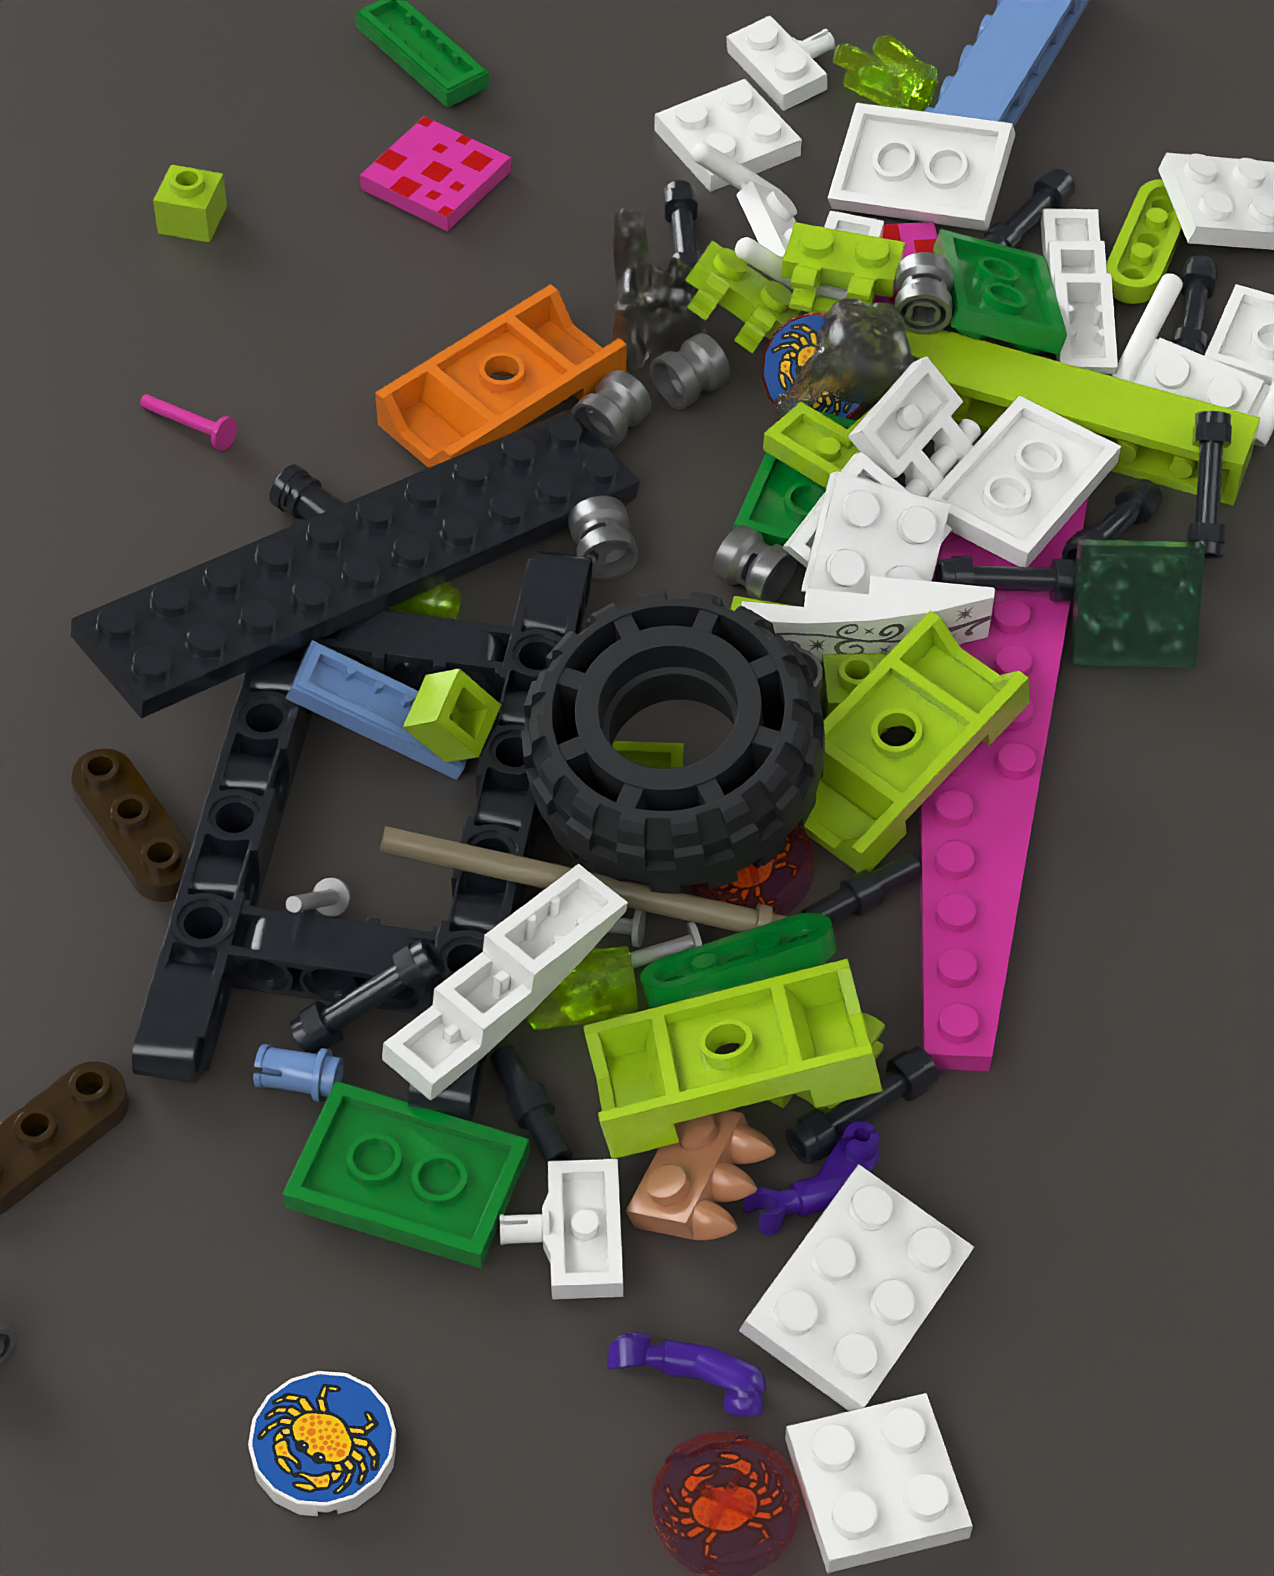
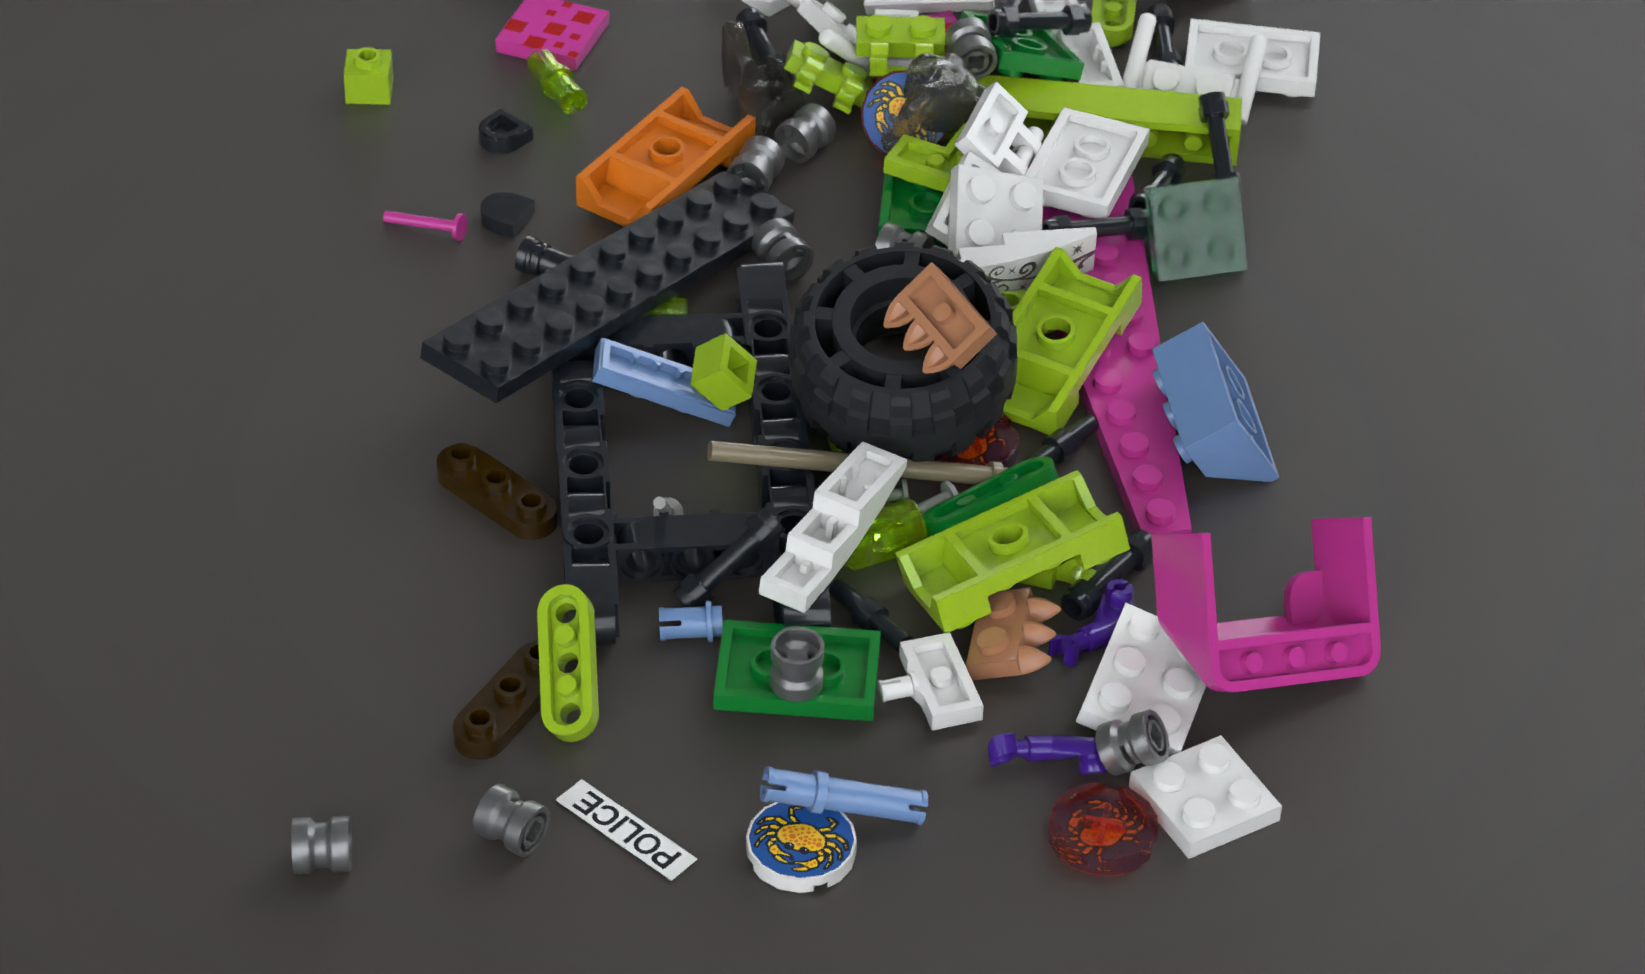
camera: 15 degrees left, 10 degrees down
(105, 1083) = (557, 646): none -> lime plate
(116, 1367) = (626, 830): none -> white sticker
(289, 421) = (506, 212): none -> black tile
(326, 306) = (504, 132): none -> black tile
(390, 1389) = (822, 793): none -> medium blue pin
(398, 1165) = (797, 664): none -> flat silver wheel
(413, 246) = (557, 81): none -> clear neon green pin
(709, 724) = (939, 317): none -> nougat plate
(808, 1389) = (1132, 742): none -> flat silver wheel
(1072, 268) = (1006, 21): none -> black bar
(1075, 882) = (1212, 408): none -> medium blue slope
(1085, 1275) = (1327, 621): none -> dark pink windscreen

